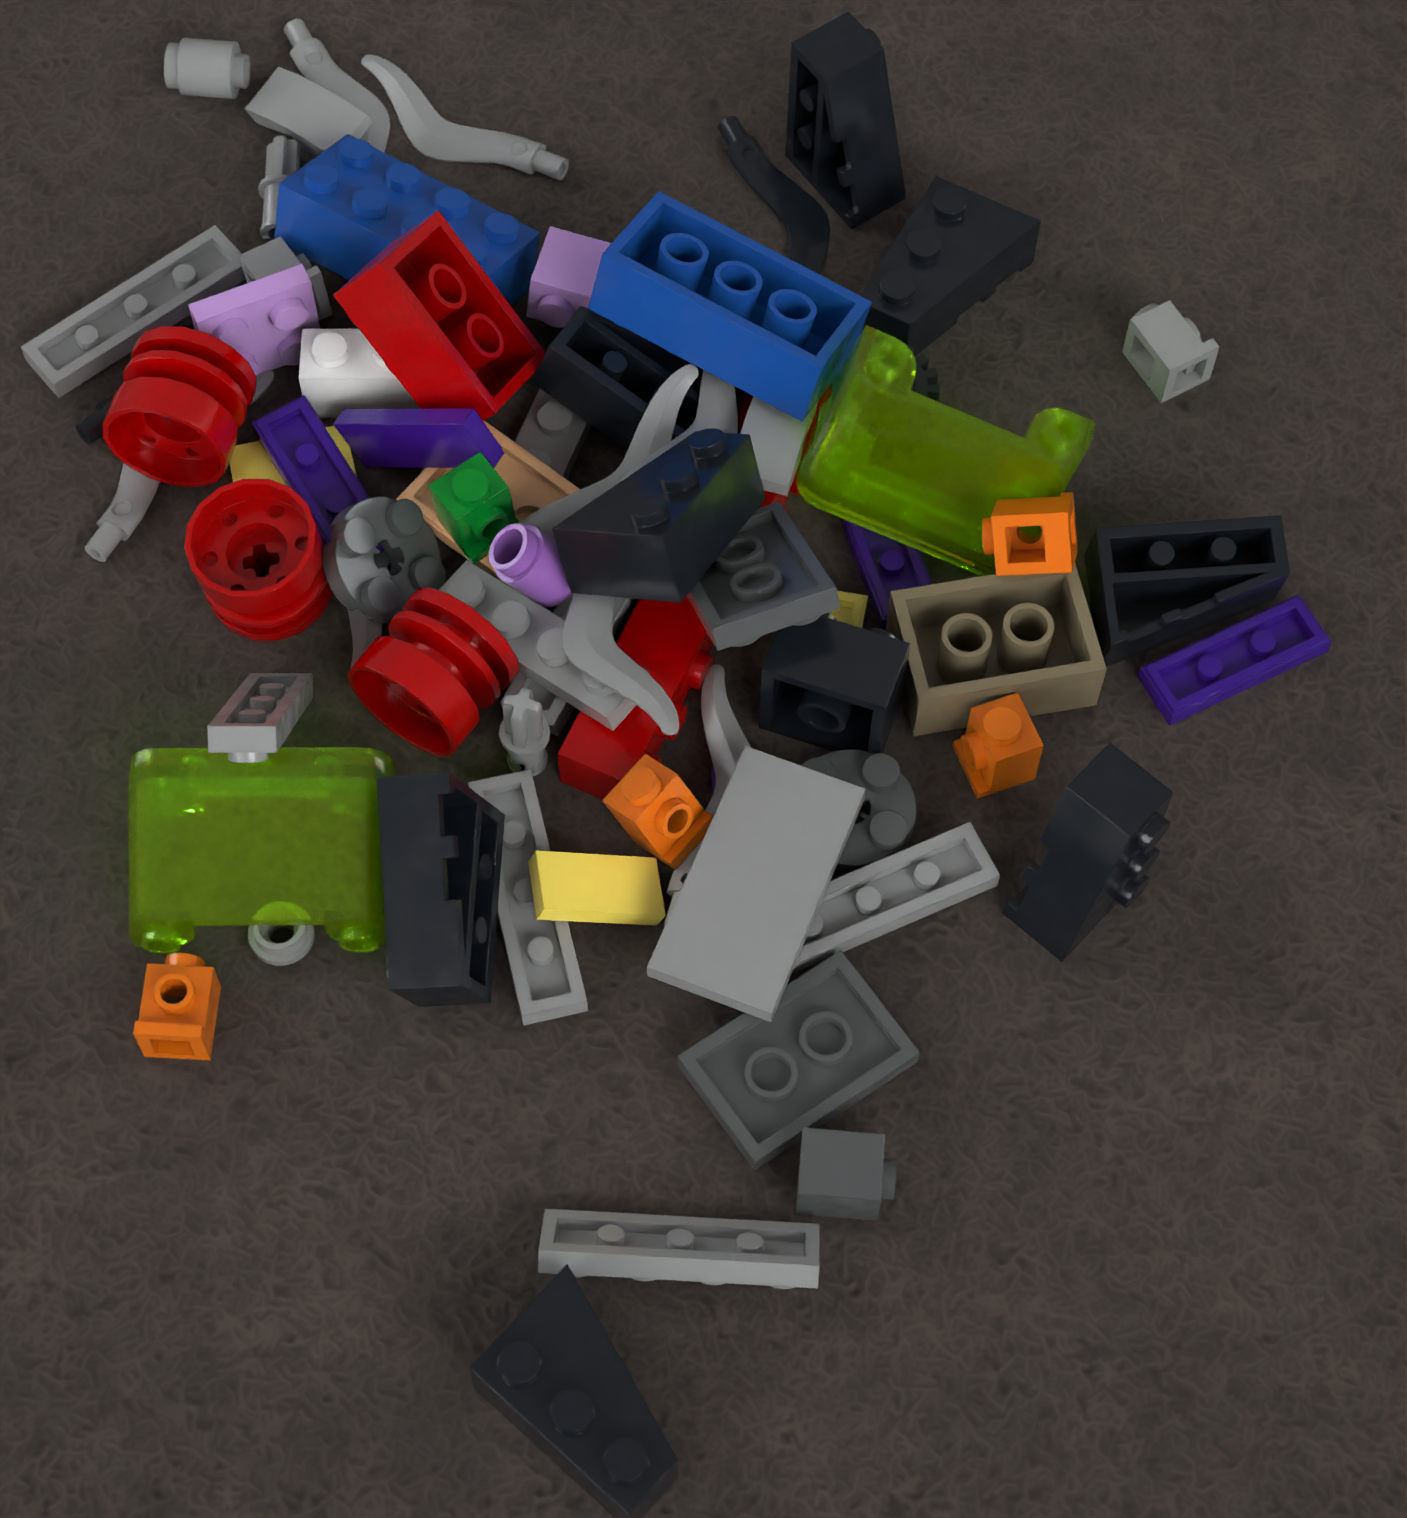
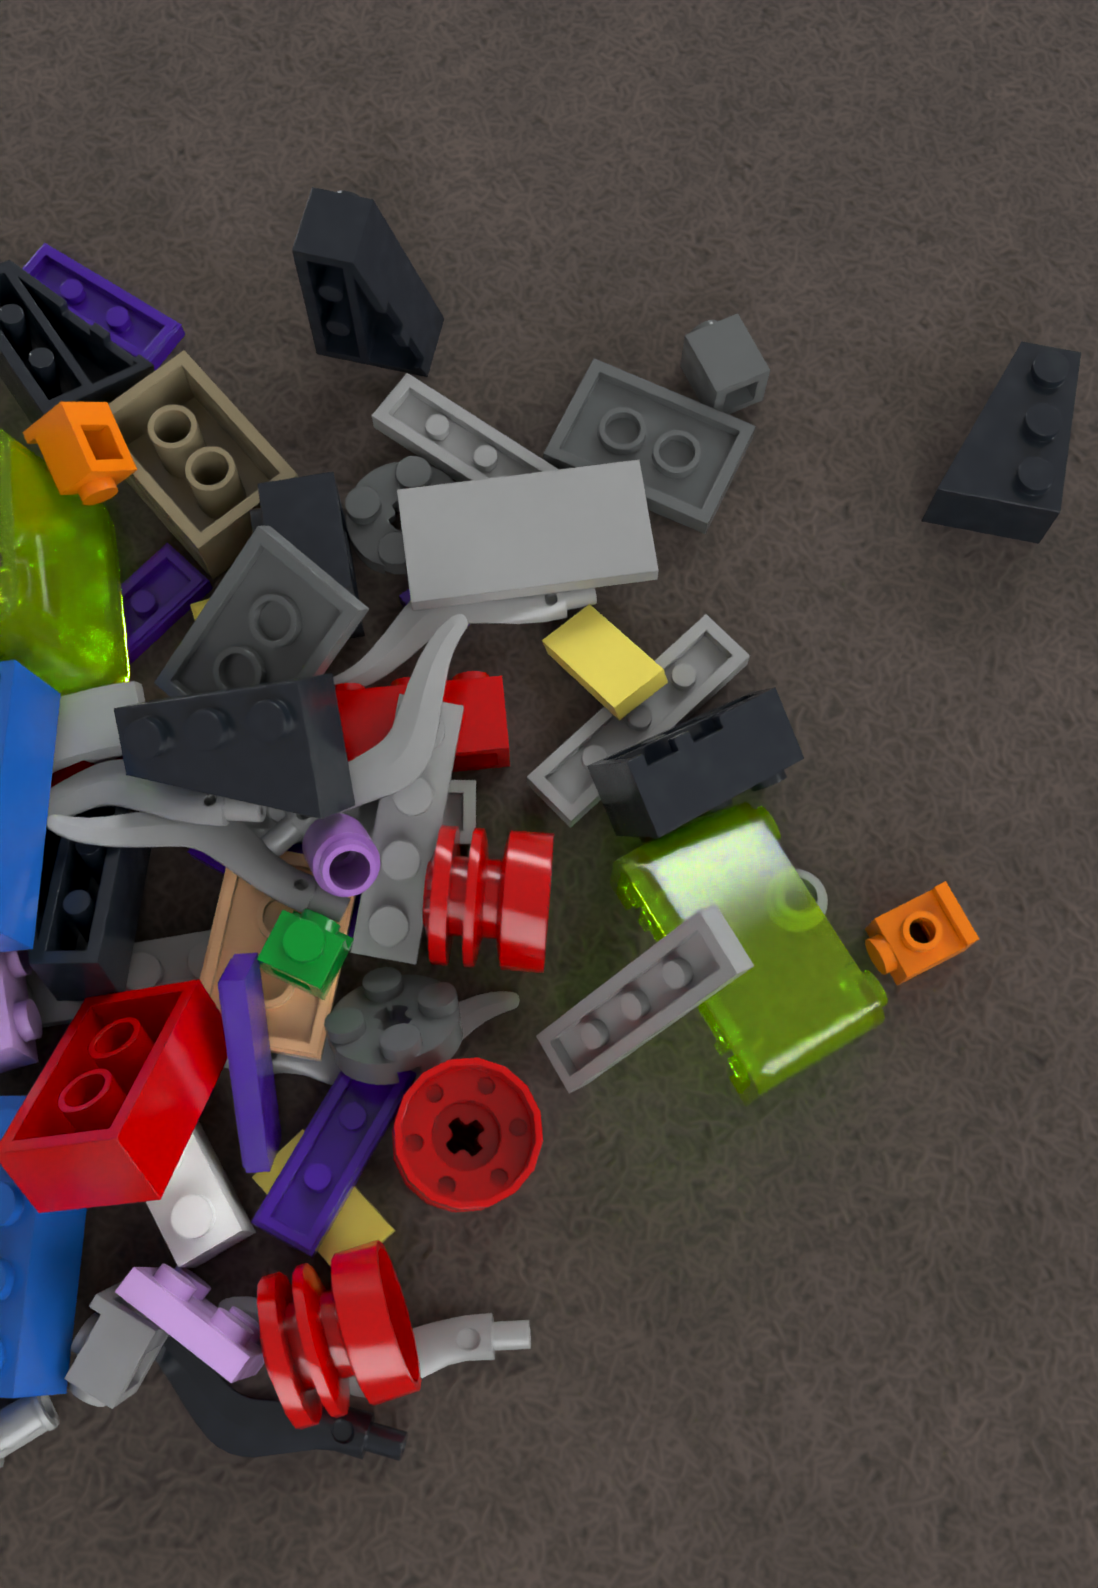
camera: 120 degrees left, 10 degrees up
(150, 299) = (224, 1495): light grey plate -> none
(524, 732) = (504, 789): light grey axle -> none
(658, 811) = (509, 642): orange brick -> none
(680, 1248) = (854, 447): light grey plate -> none
(999, 746) = (290, 422): orange brick -> none

